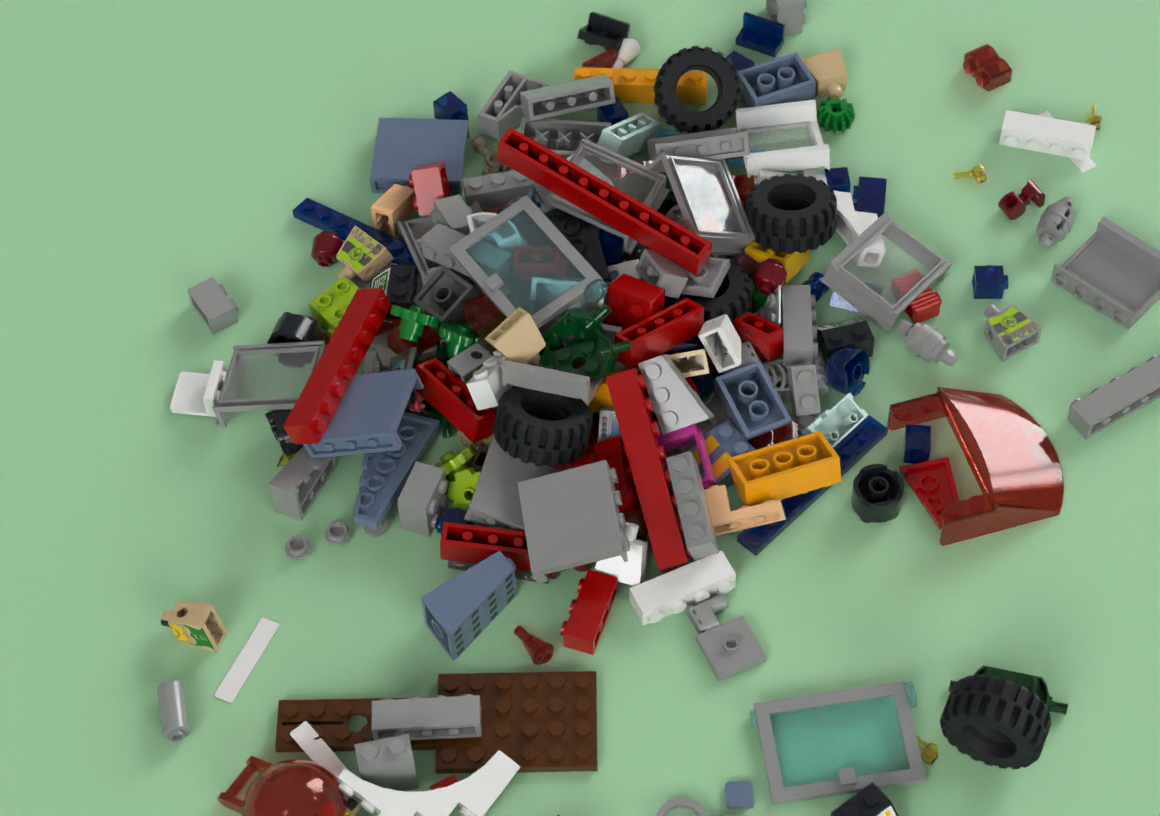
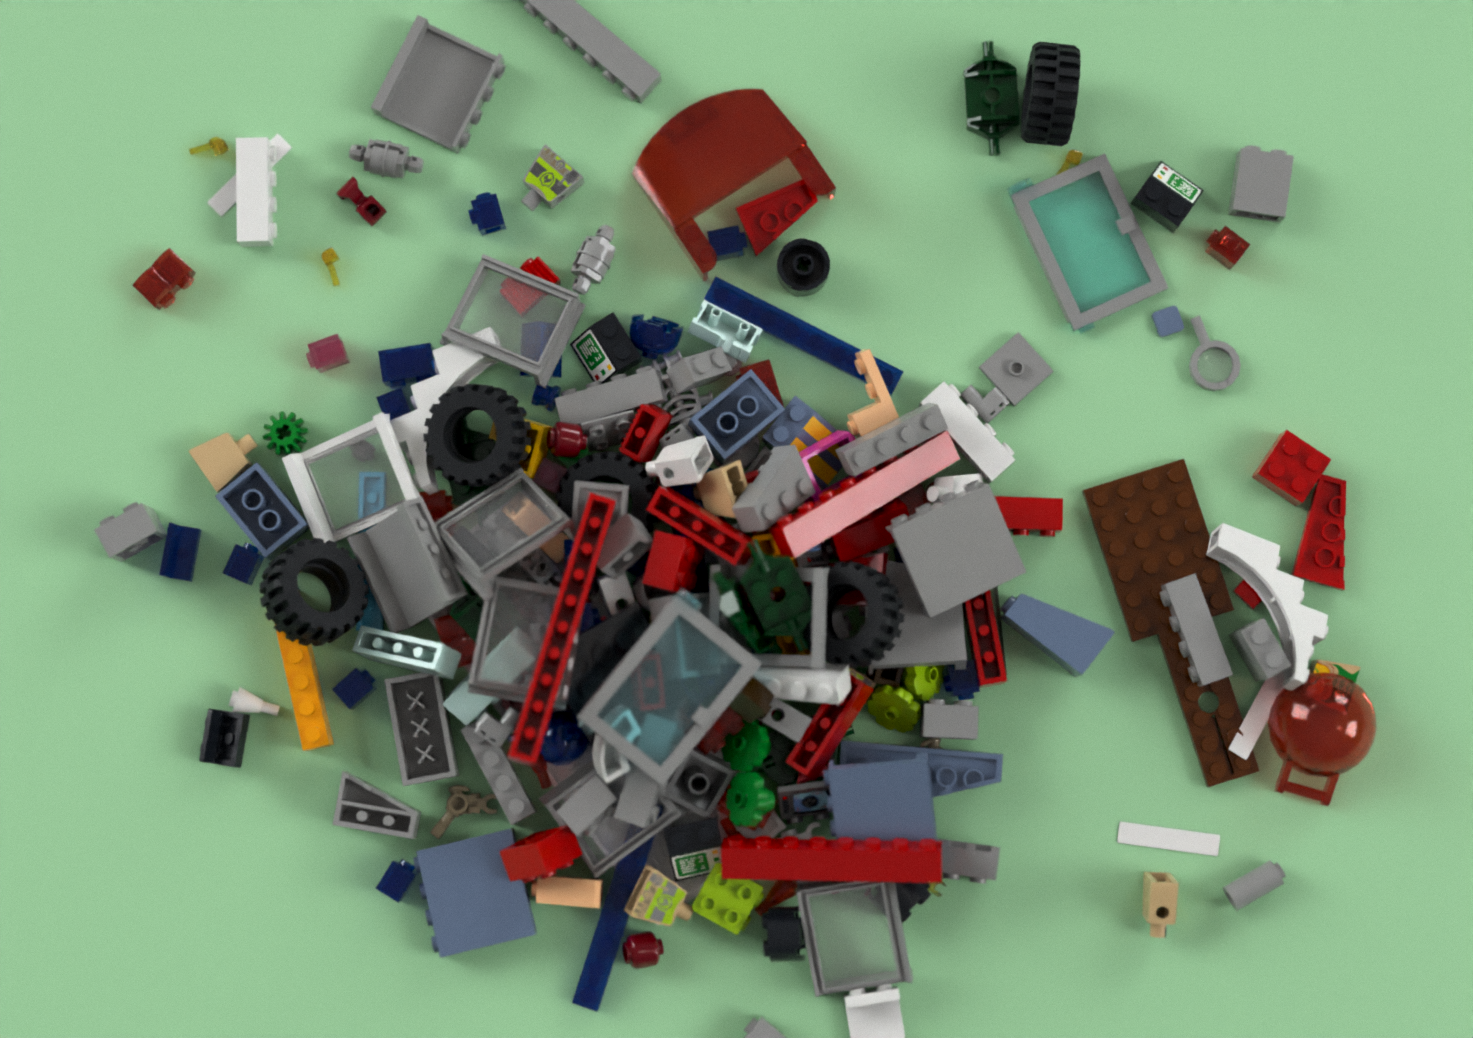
camera: 110 degrees left, 30 degrees up
(297, 547) = (1031, 835): light grey plate -> none
(337, 533) = (1003, 800): light grey plate -> none
(518, 338) = (778, 665): tan torso -> none
(538, 649) = (1075, 555): clear red cone -> none
(567, 97) = (363, 740): light grey brick -> none
(603, 60) = (275, 727): clear red tile -> none
(785, 469) = (810, 362): light orange slope -> none
(895, 154) = (327, 353): none -> clear pink brick

